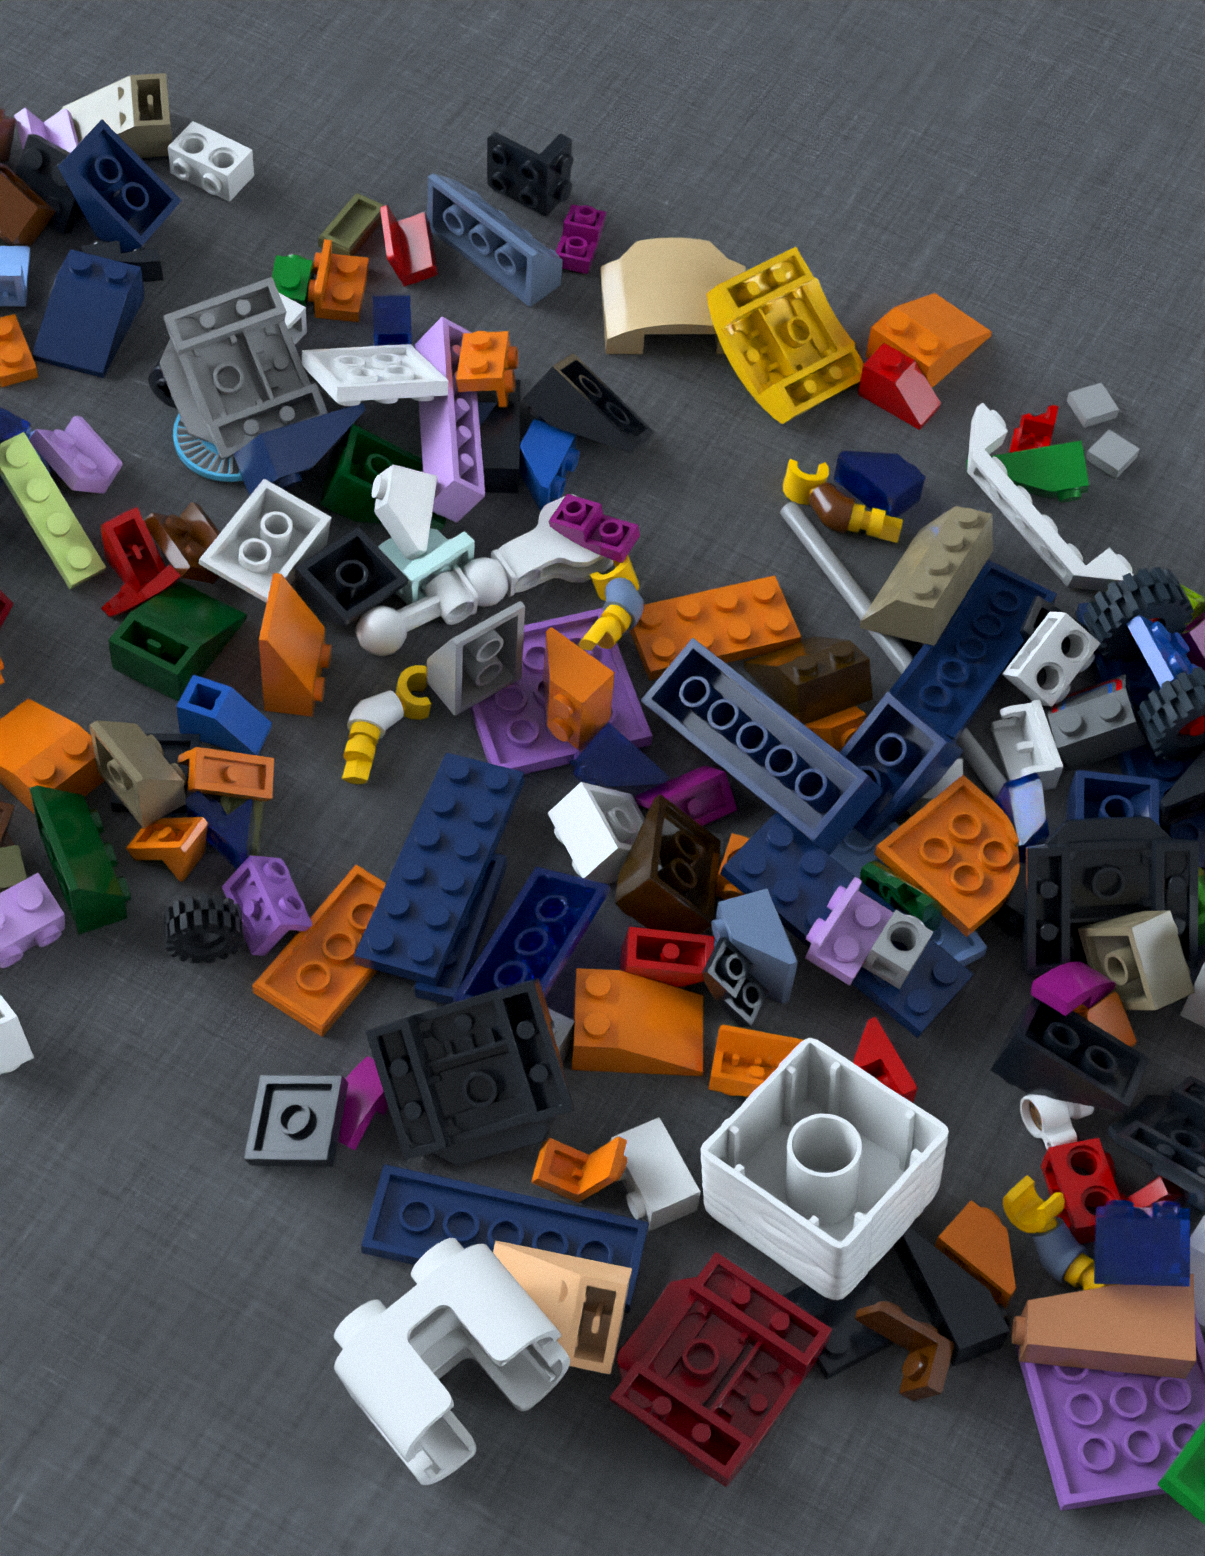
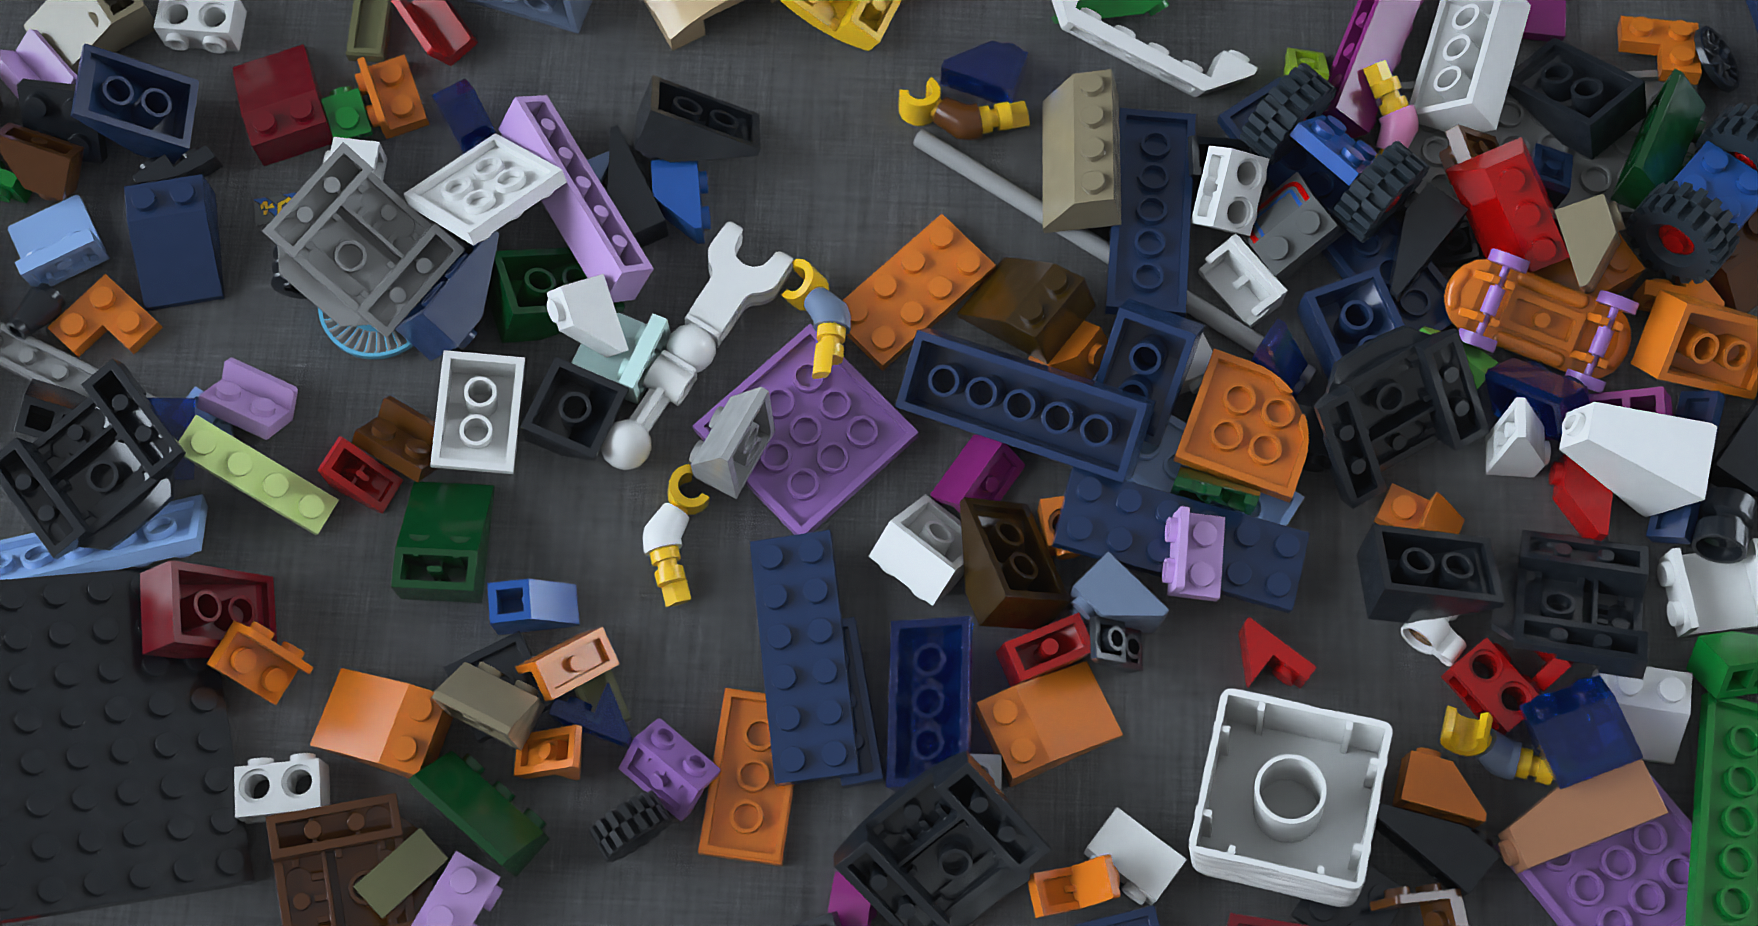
camera: 20 degrees left, 15 degrees up
(130, 598) = (378, 524): red slope -> none
(238, 250) = (282, 105): none -> dark red slope
(291, 652) = (564, 513): orange slope -> none
(488, 364) = (583, 129): orange bracket -> none
(575, 690) = (835, 431): orange slope -> none
(587, 526) = (766, 252): magenta slope -> none
(614, 762) = (901, 479): clear blue slope -> none
(746, 1059) = (1168, 710): orange bracket -> none
(890, 962) = (1243, 567): light grey brick -> none
(1071, 986) = (1402, 508): magenta slope -> none
(1141, 957) = (1443, 455): dark tan slope -> none

